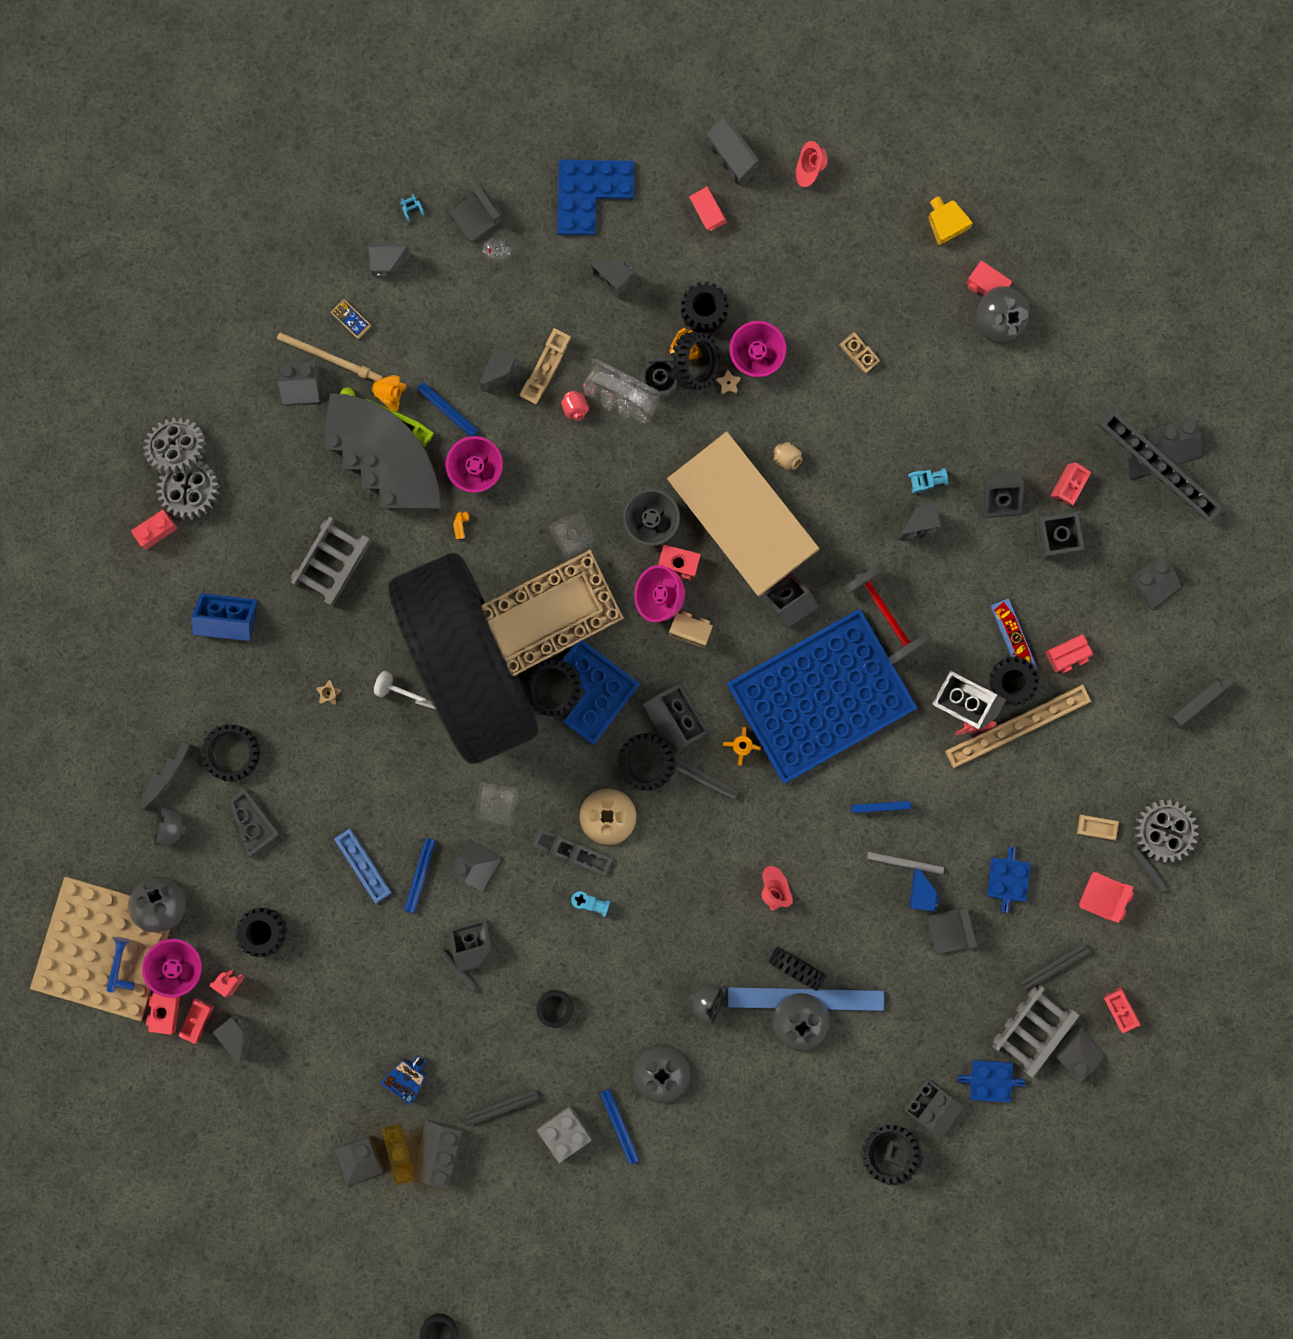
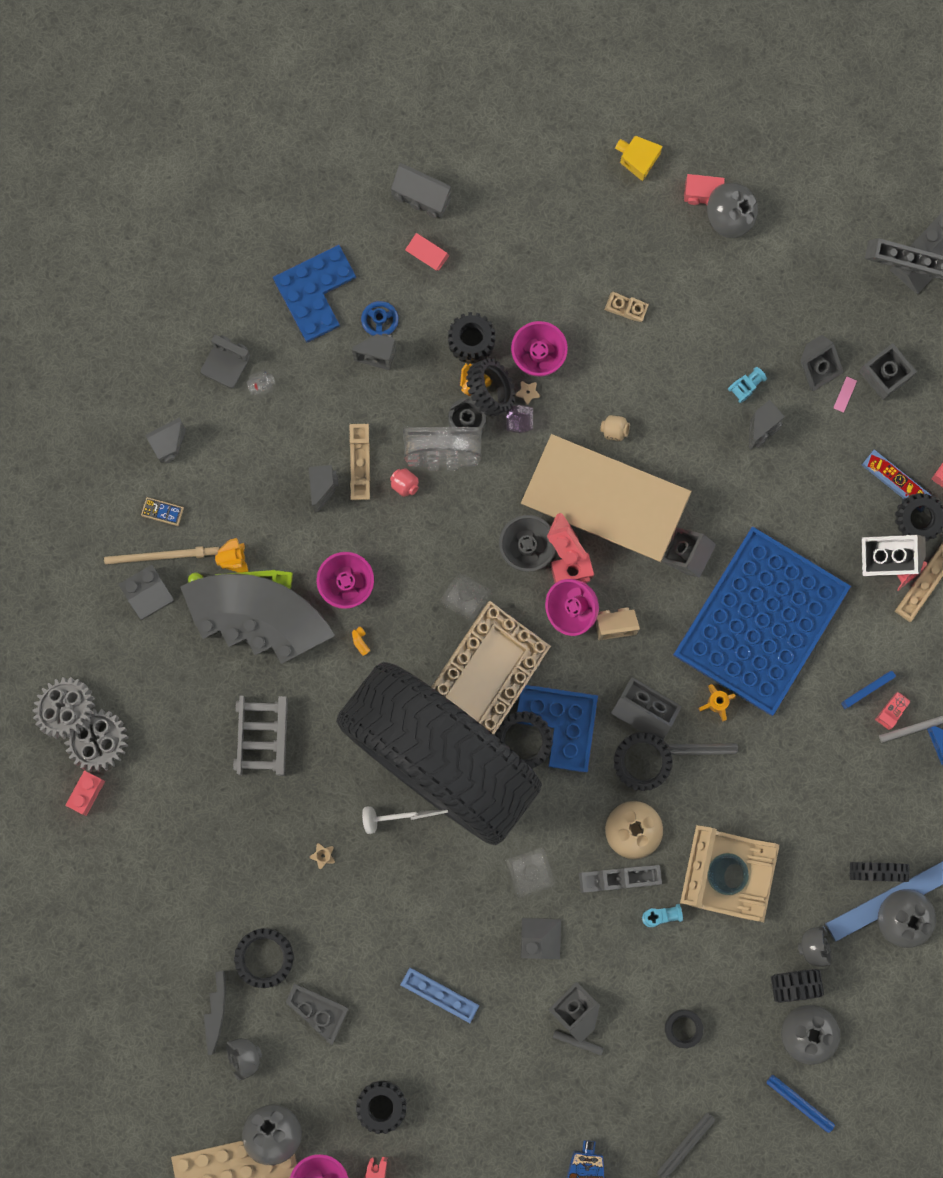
camera: 35 degrees left, 5 degrees down
(224, 617) = (192, 837): blue slope -> none
(417, 204) = (167, 381): medium azure piece -> none
(420, 874) = (496, 975): blue axle -> none
(447, 409) = (292, 545): blue axle -> none
(564, 1134) = (756, 1138): light grey brick -> none
(634, 240) = (379, 312): none -> blue piece
(649, 885) = (705, 881): none -> tan panel
(671, 1026) = (797, 985): none -> black tyre
(685, 532) = (566, 541): none -> coral bracket
(707, 403) = (520, 419): none -> clear purple panel
(776, 889) = (819, 813): coral piece -> none
(811, 162) = (494, 168): coral piece -> none
(864, 579) = (815, 537): dark grey piece -> none
(892, 837) = (892, 711): none -> coral leg
(1011, 535) = (845, 394): none -> bright pink window
(1071, 483) = (871, 323): coral hinge -> none

